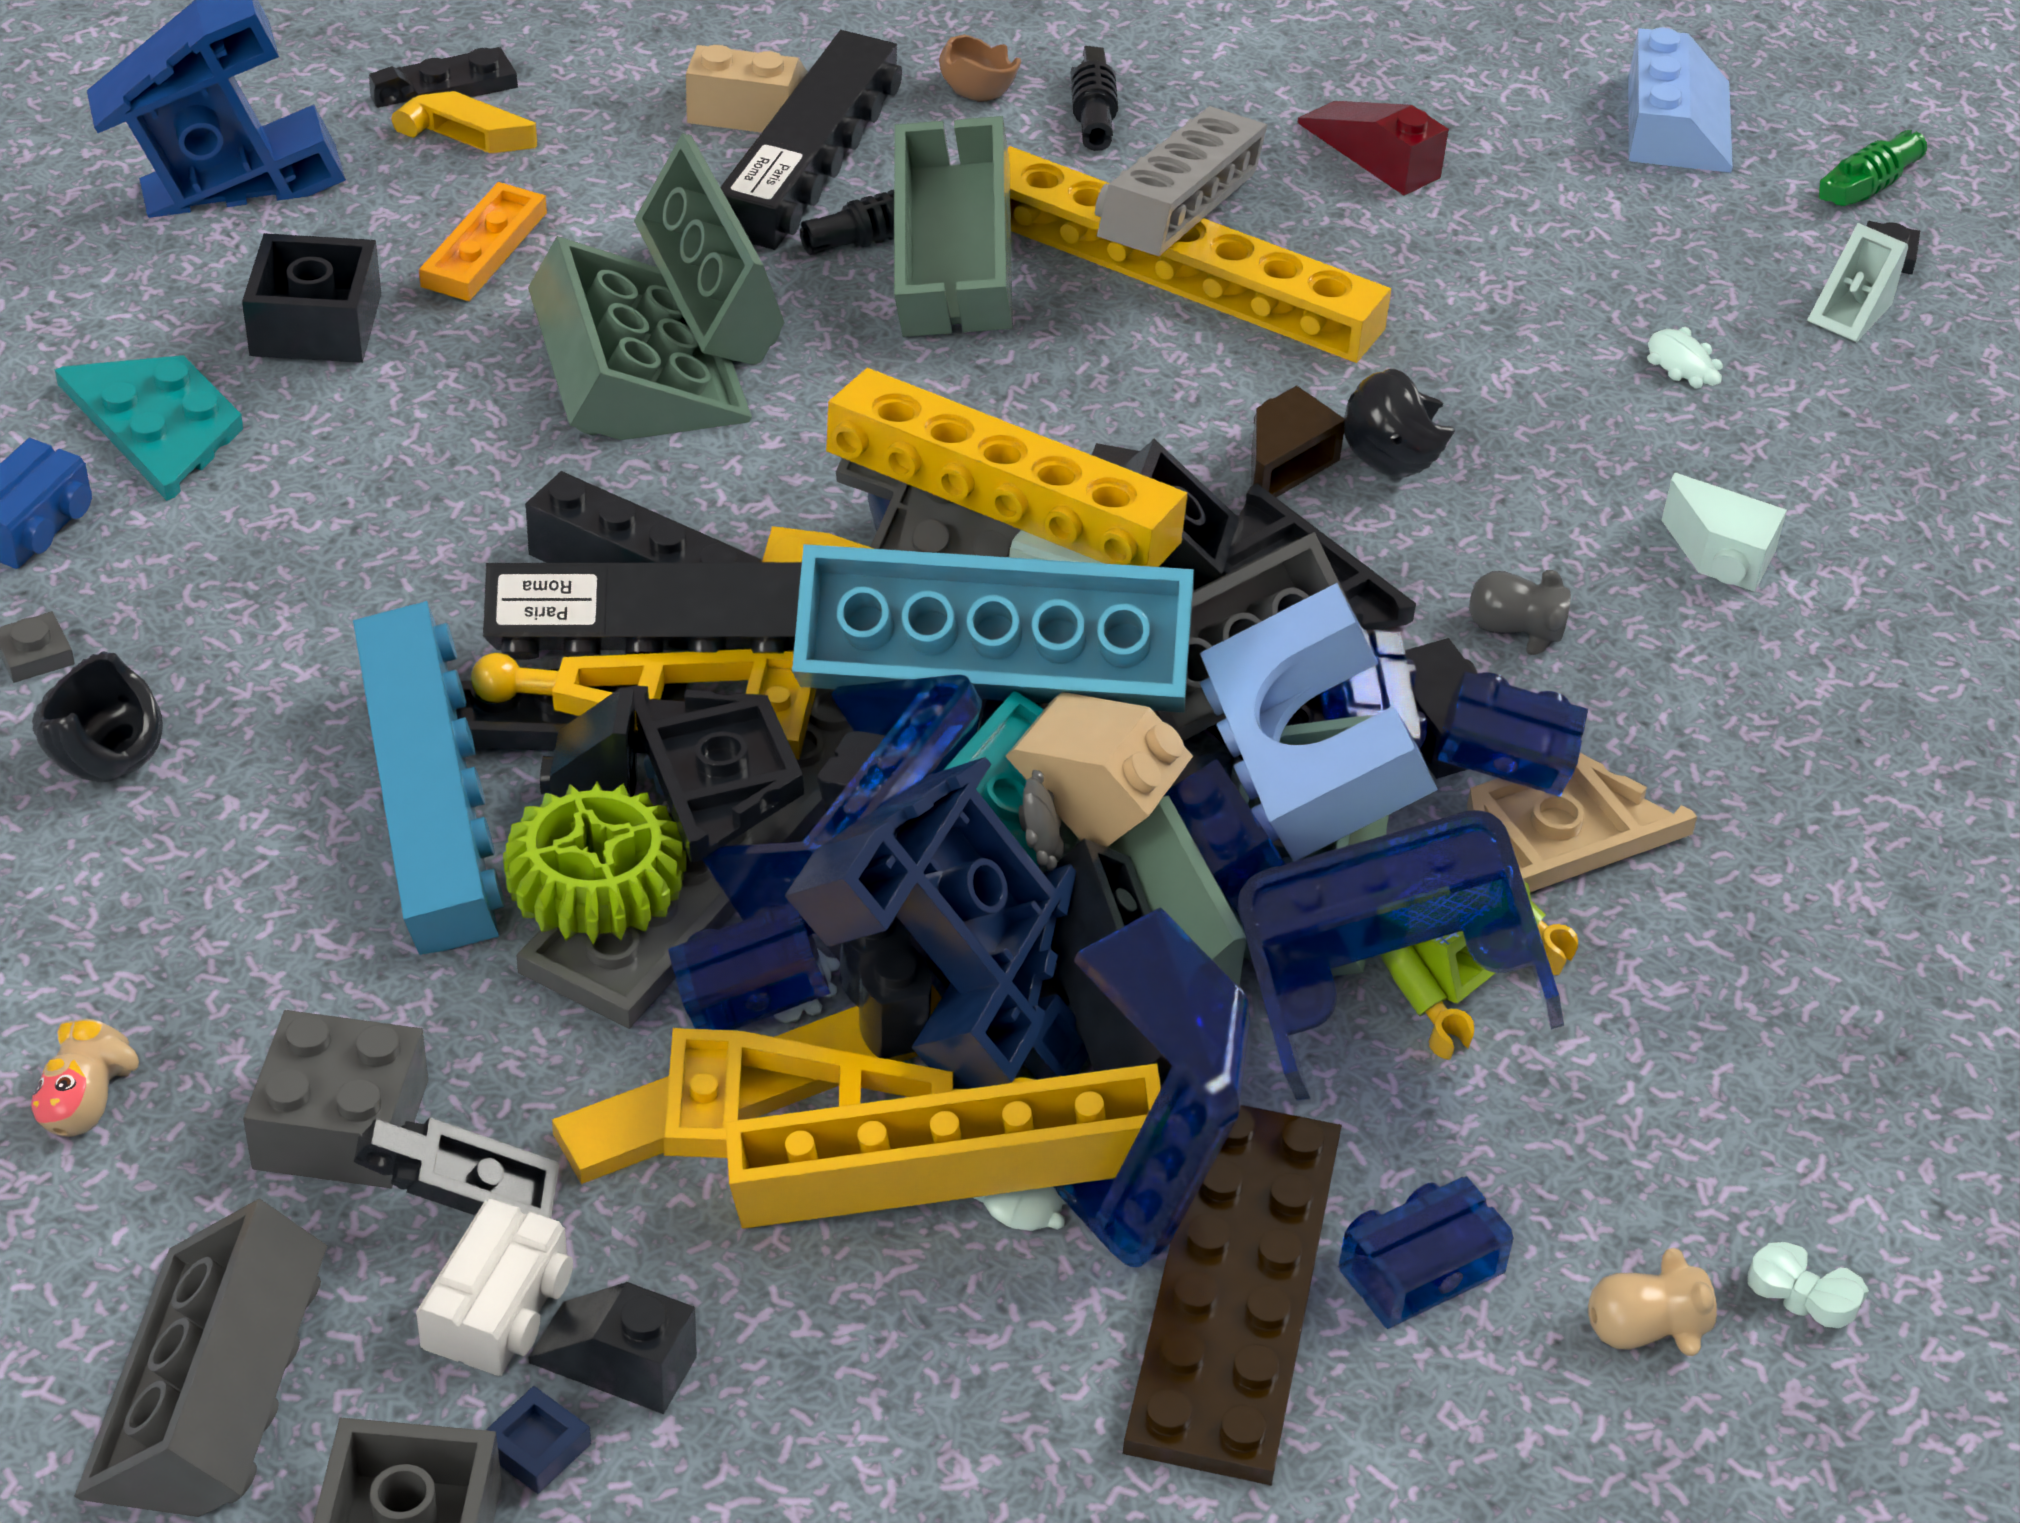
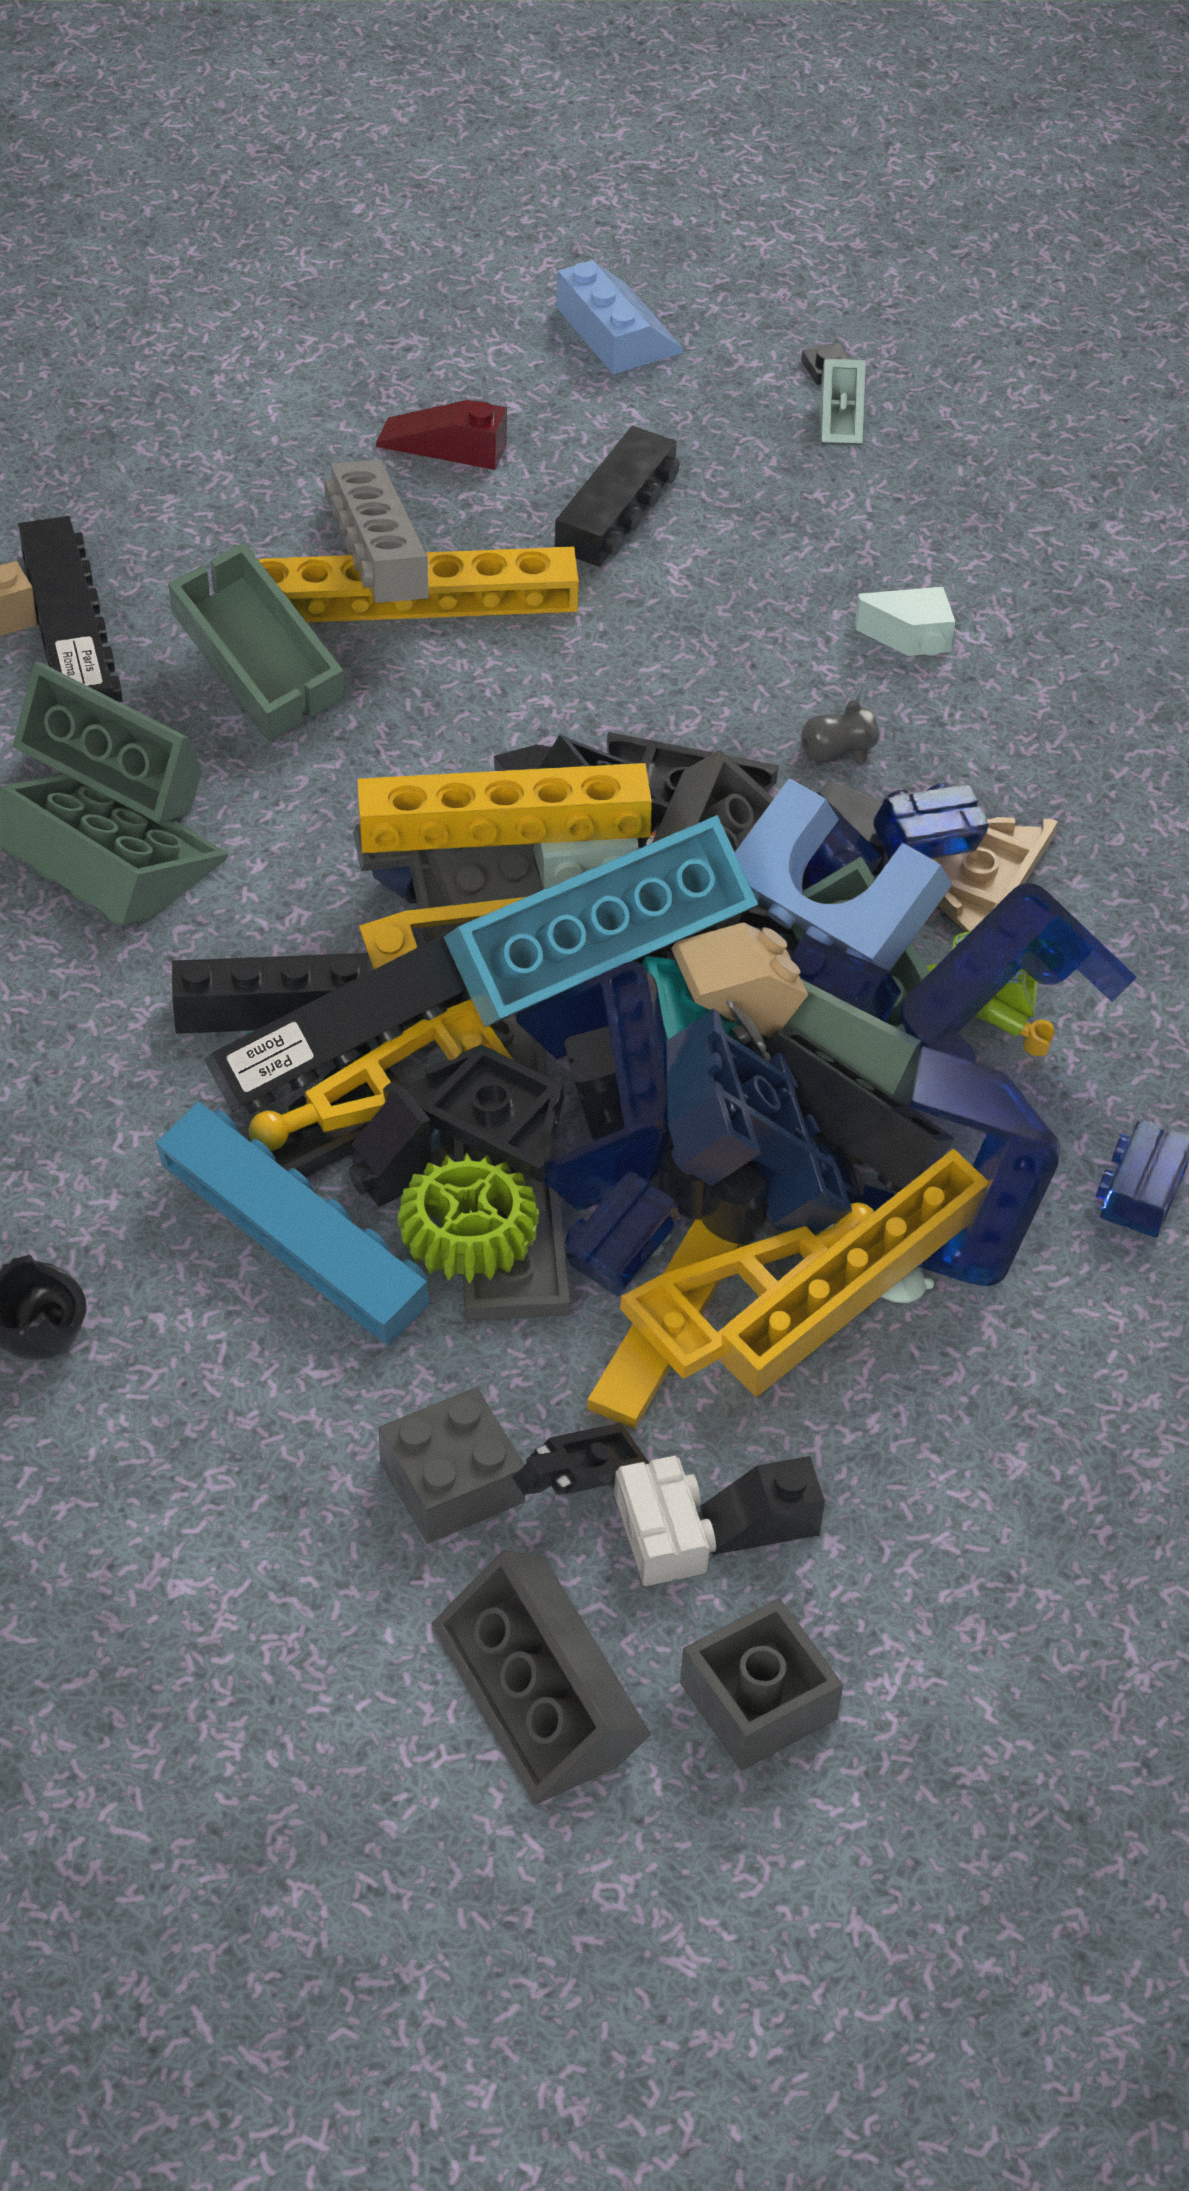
camera: 35 degrees left, 5 degrees up
(76, 1081) = (272, 1554): tan animal -> none
(538, 1439) = (769, 1582): dark blue plate -> none
(856, 223) = (164, 669): black hinge -> none
(976, 68) = (132, 507): medium nougat hair -> none
(1094, 98) = (230, 491): black hinge -> none
(1235, 1301) = (1086, 1296): dark brown plate -> none
(1293, 440) = (598, 690): dark brown slope -> none
(1393, 425) = (665, 646): black piece -> none
(1501, 267) = (617, 495): none -> black brick
(1684, 357) = (775, 506): light aqua piece -> none
(1872, 168) = (773, 310): green hinge -> none

